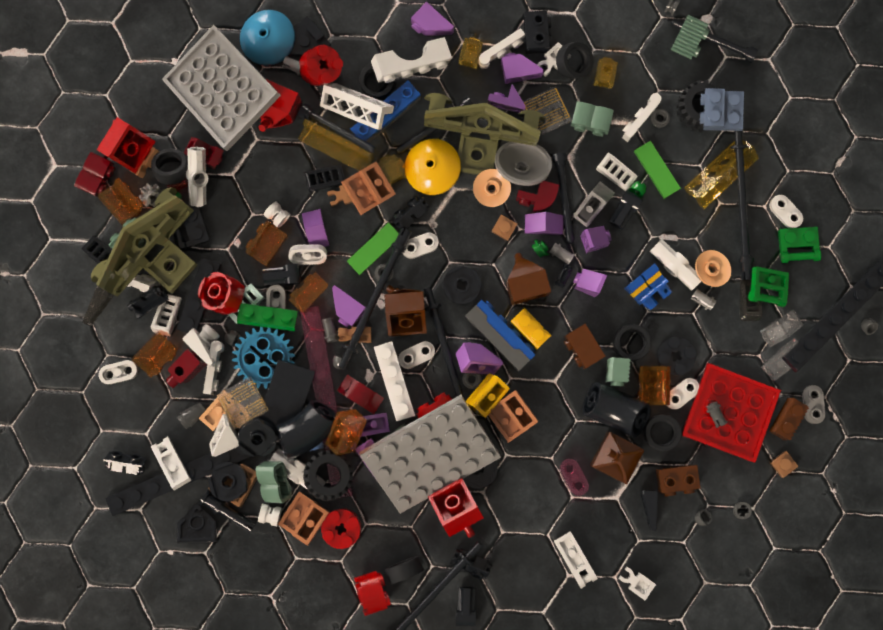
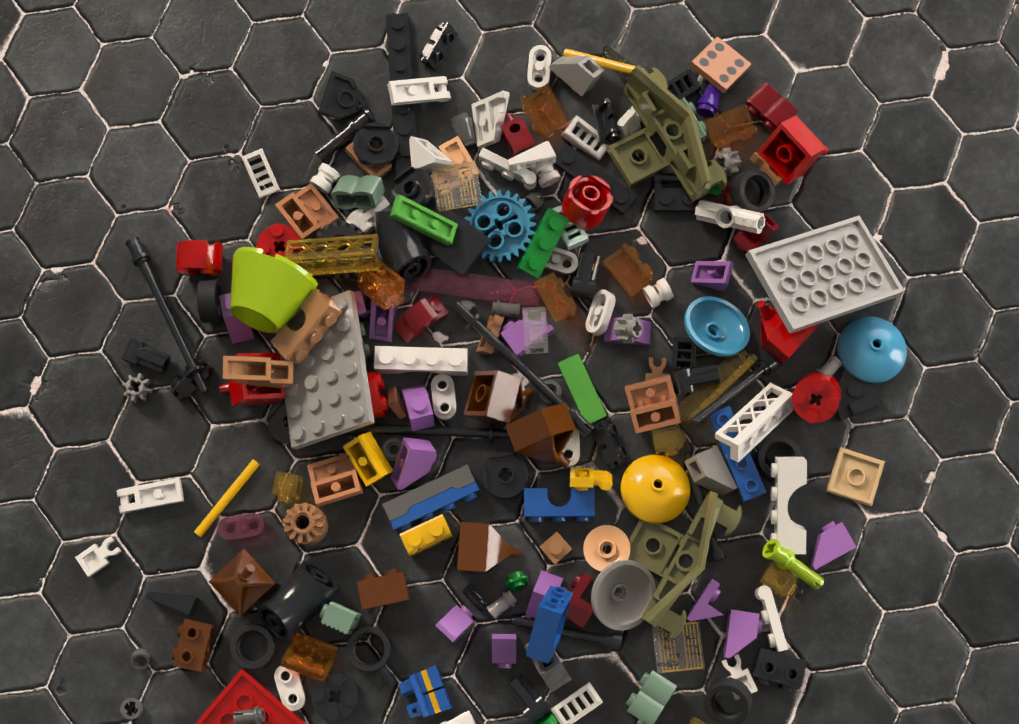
camera: 115 degrees right, 5 degrees down
(70, 226) = (720, 65): none -> tile
(98, 321) = (605, 63): none -> yellow bar
(104, 225) = (708, 103): none -> dark purple cone
(112, 339) = (578, 72): none -> light grey slope
(175, 397) = (489, 117): none -> white wing
(247, 176) = (712, 274): none -> medium lavender slope
(268, 580) = (253, 156): none -> white slope
(282, 416) = (423, 220): none -> bright green tile
(289, 159) = (716, 326): none -> dark azure dish
(315, 224) = (628, 328): none -> light grey gear
(338, 167) = (688, 378): none -> black piece
(340, 297) = (535, 330): none -> clear slope
(340, 477) = (333, 260): none -> clear yellow fence
(370, 20) = (855, 476): none -> tan tile
(384, 521) = (267, 289): none -> lime cone
(388, 470) = (320, 315): none -> medium nougat arch
(404, 128) = (711, 471): none -> light grey slope
(409, 543) = (237, 330): none -> medium lavender slope
(421, 263) = (543, 434): none -> reddish brown piece
(431, 371) = (418, 407): none -> medium lavender slope
(434, 390) = (396, 403): none -> medium nougat tile
(444, 218) = (587, 478): none -> yellow plate
(451, 503) = (258, 371): none -> medium nougat slope
(455, 49) = (786, 559): none -> lime pin
(466, 219) = (538, 506): none -> blue arch
(494, 609) = (143, 388): none -> light grey gear
(531, 451) = (287, 487): none -> clear yellow brick
(546, 430) = (317, 525): none -> medium nougat gear
(556, 498) = (226, 498): none -> yellow bar
(567, 207) = (549, 624): none -> blue window

